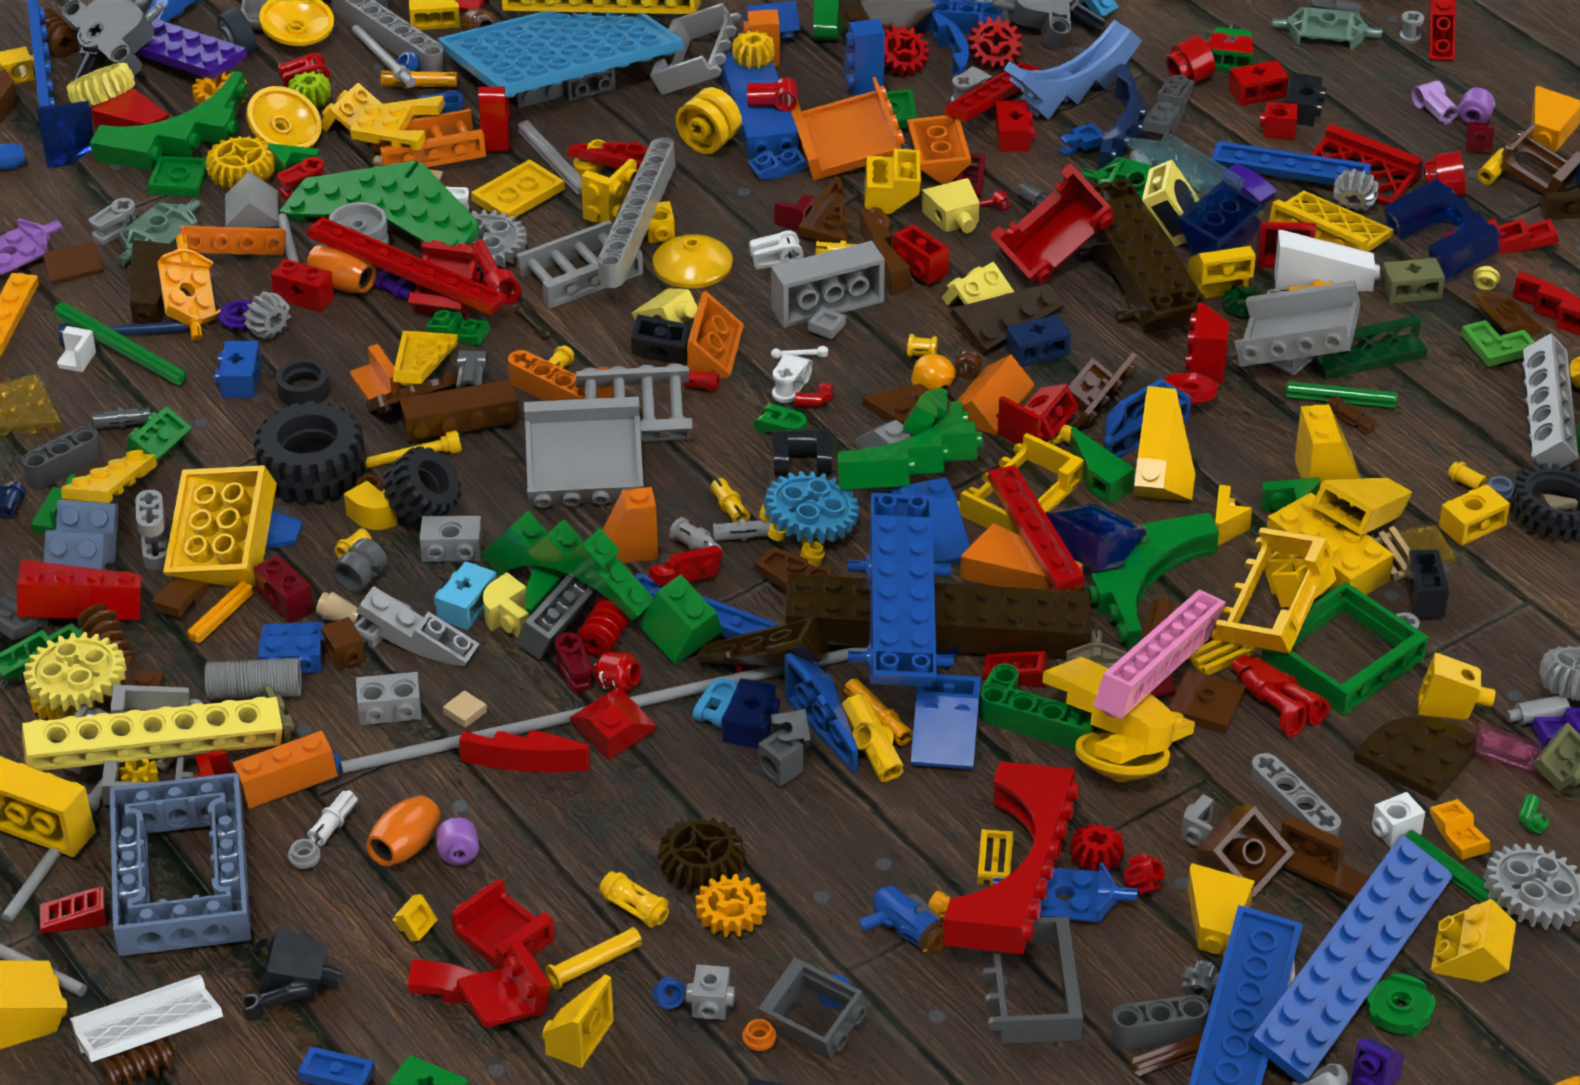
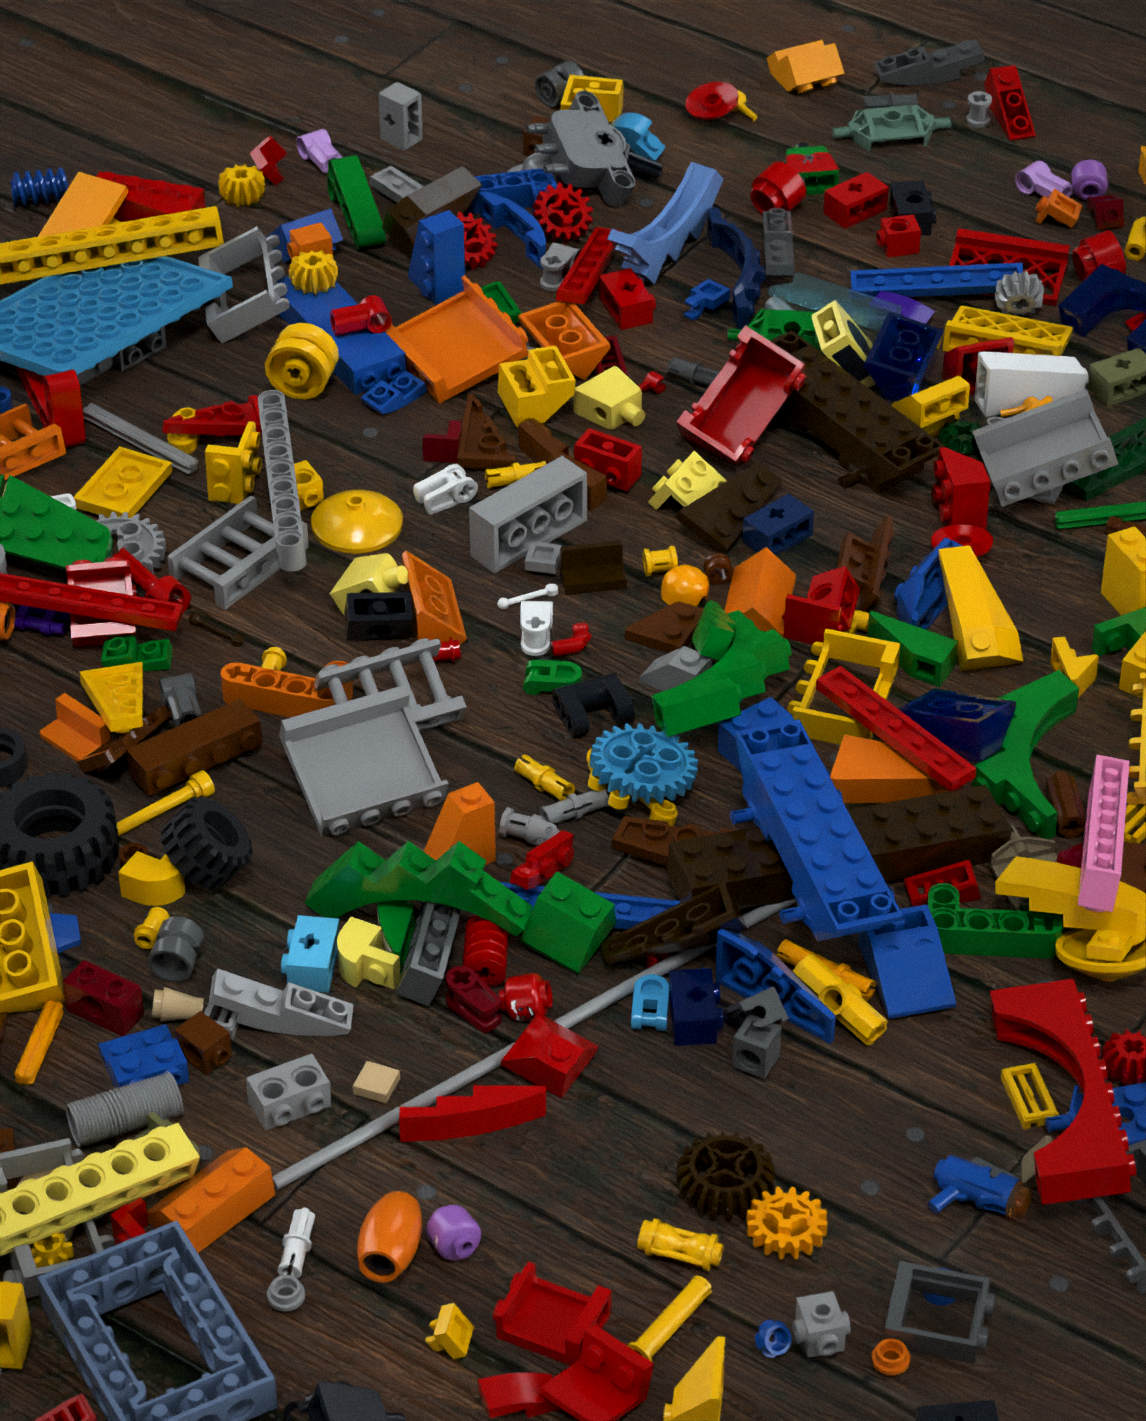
camera: 20 degrees left, 0 degrees up
(451, 538) = (261, 893): light grey brick -> none
(862, 340) = (592, 568): none -> dark brown panel
(939, 903) = (1006, 1160): light orange hinge -> none
(1437, 125) = (1058, 206): none -> orange bracket

